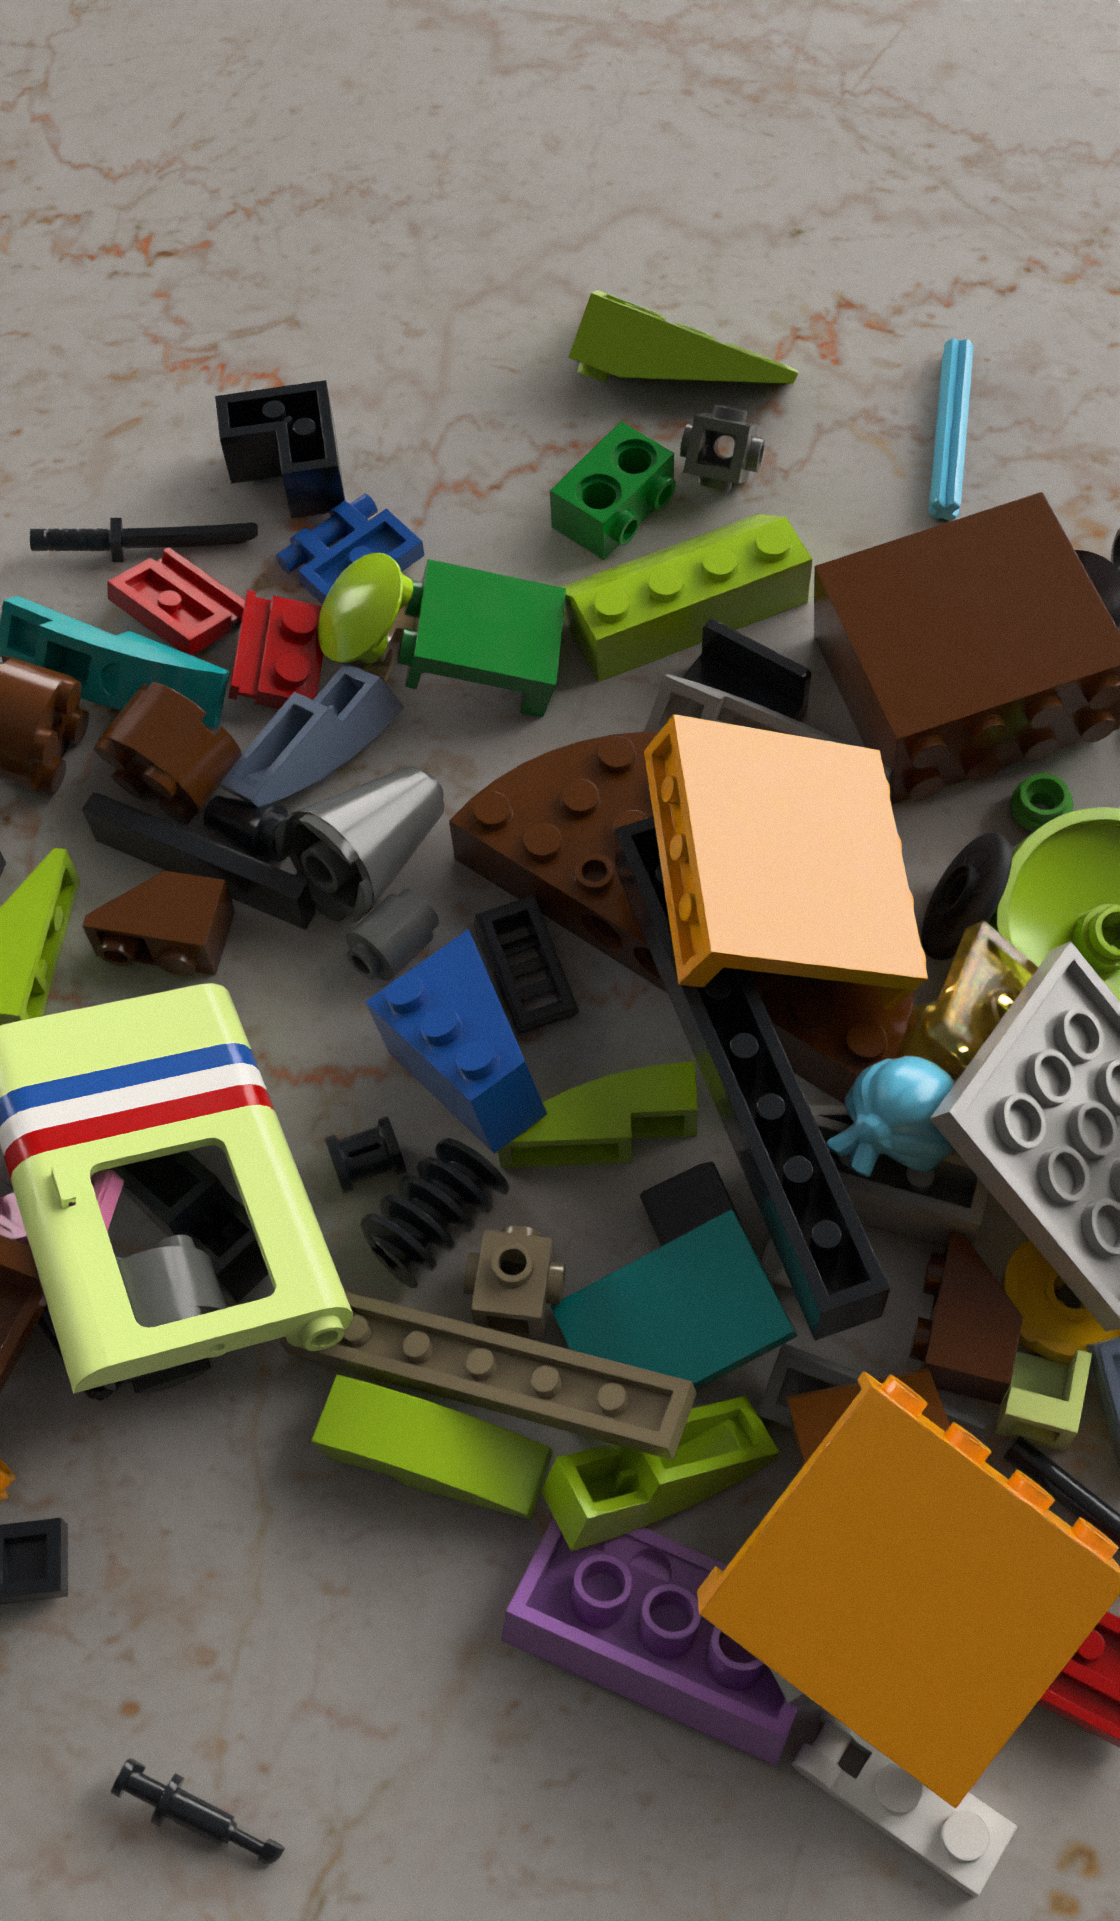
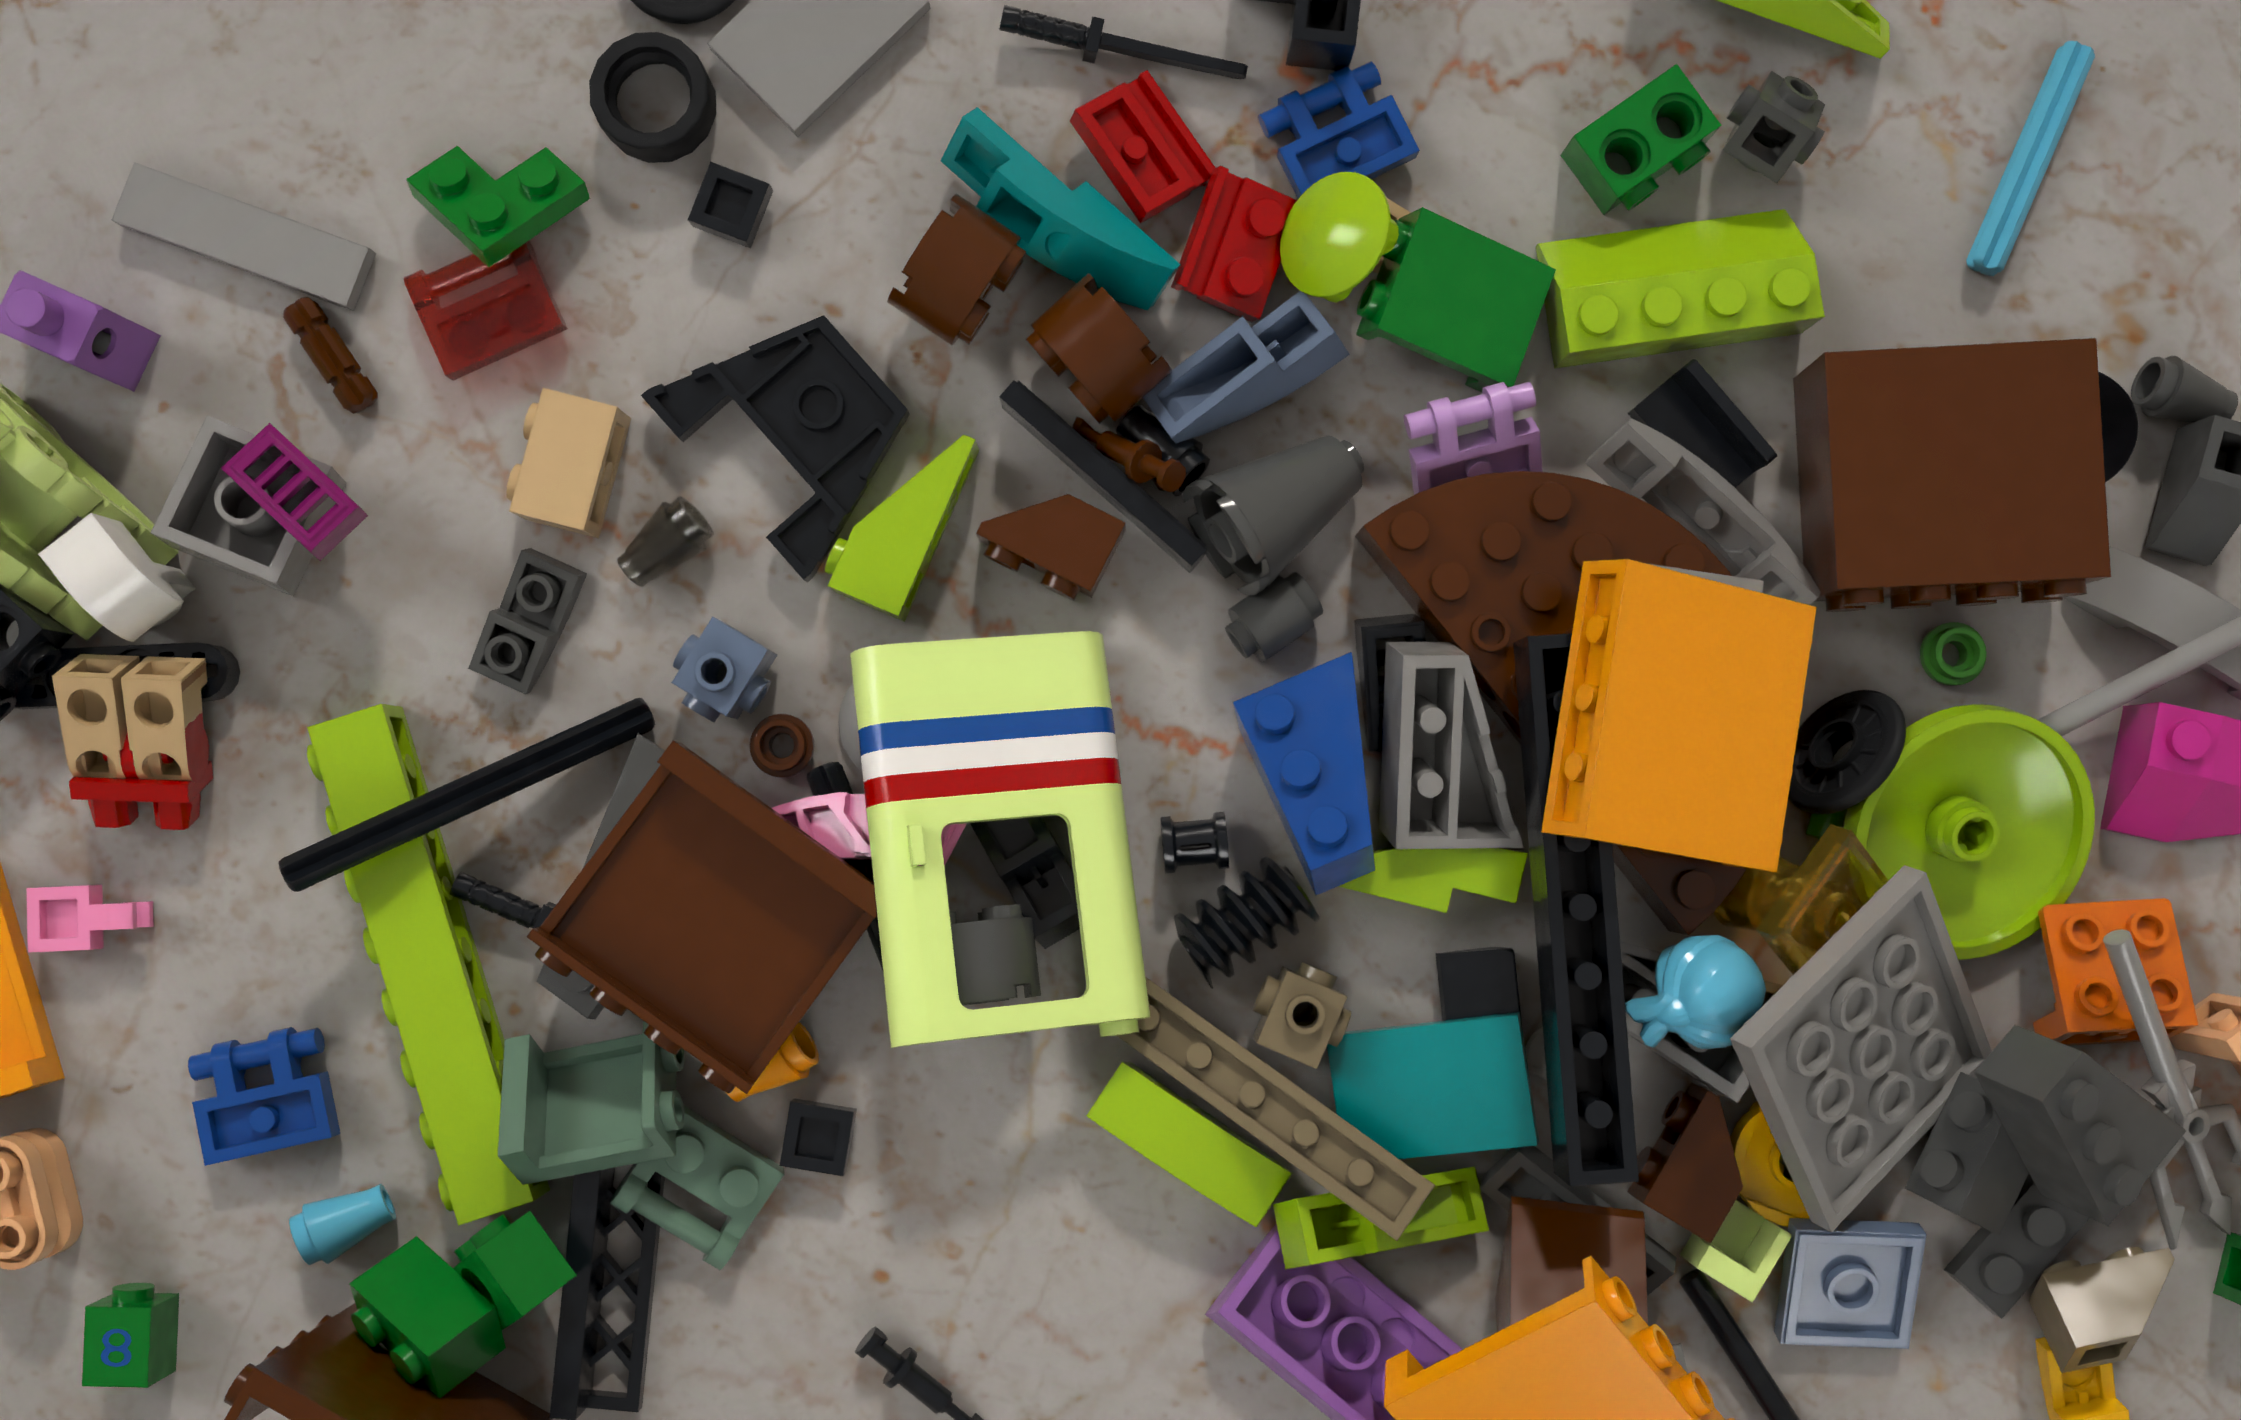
camera: 10 degrees right, 25 degrees up
(231, 824) = (1140, 459): none -> reddish brown piece
(542, 697) = (1499, 448): none -> lavender plate
(578, 993) = (1438, 755): none -> light grey wedge

